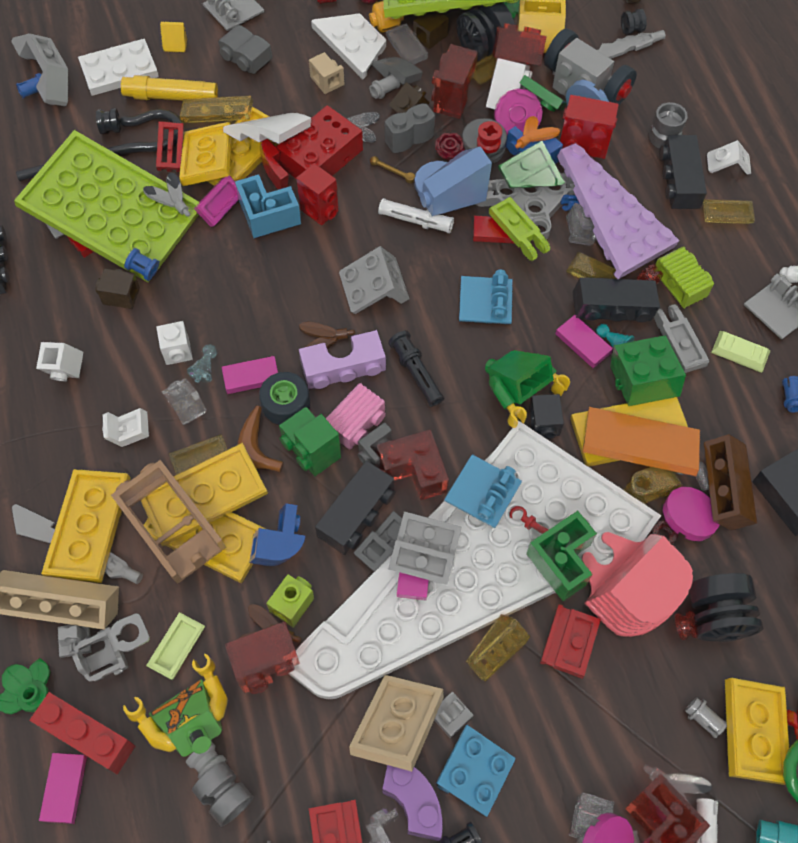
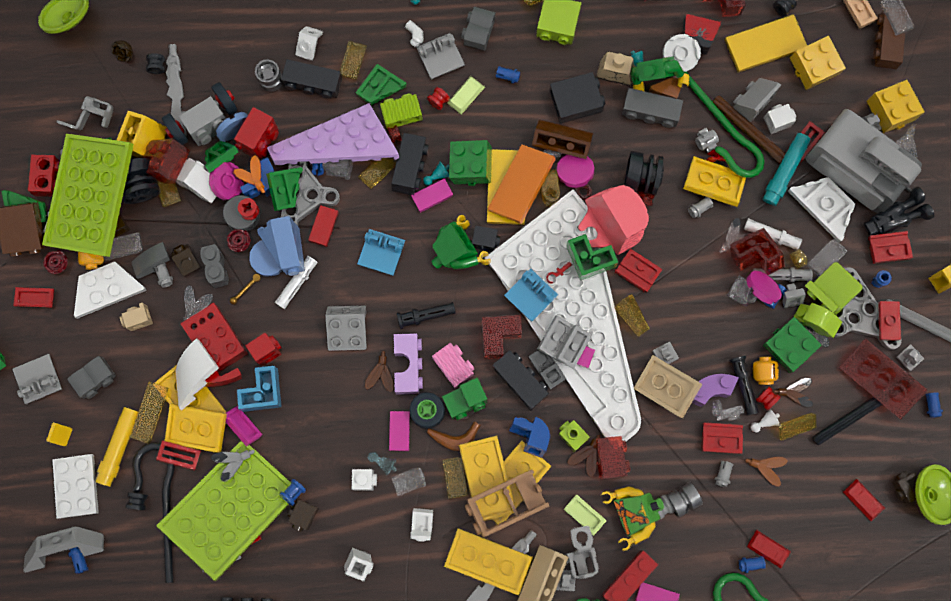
camera: 75 degrees left, 15 degrees up
(368, 447) = (476, 355): dark grey bracket -> none
(453, 80) = (186, 221): clear red brick -> none
(475, 770) = (701, 349): dark azure hinge -> none
(519, 227) = (331, 211): lime hinge -> none
(682, 339) = (449, 130): light grey hinge -> none
(708, 245) = (379, 85): none -> green wing
(720, 315) = (438, 98): none -> red wheel

